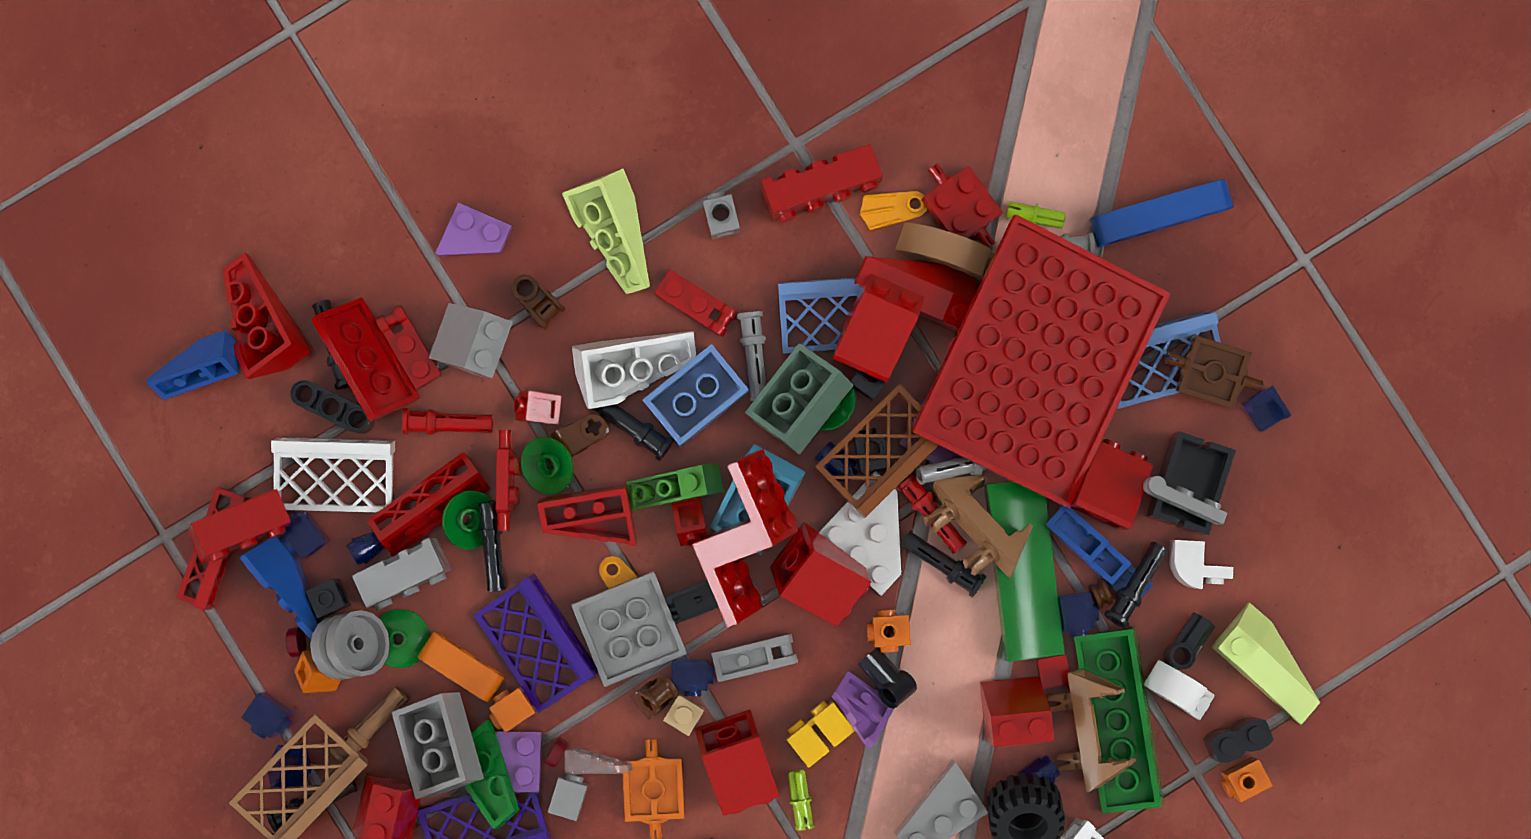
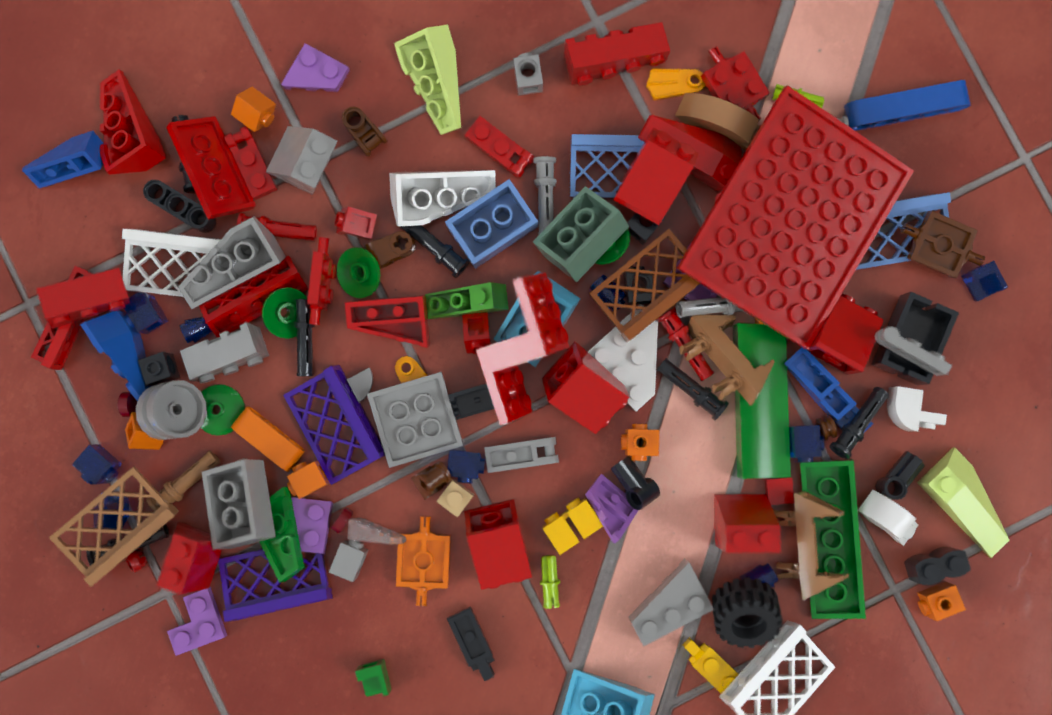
camera: 15 degrees right, 0 degrees up
(322, 823) = (135, 562): none -> red hinge
(406, 464) = (236, 258): none -> light grey wedge
(407, 287) = (253, 109): none -> orange brick
(562, 593) = (361, 384): none -> light grey tile

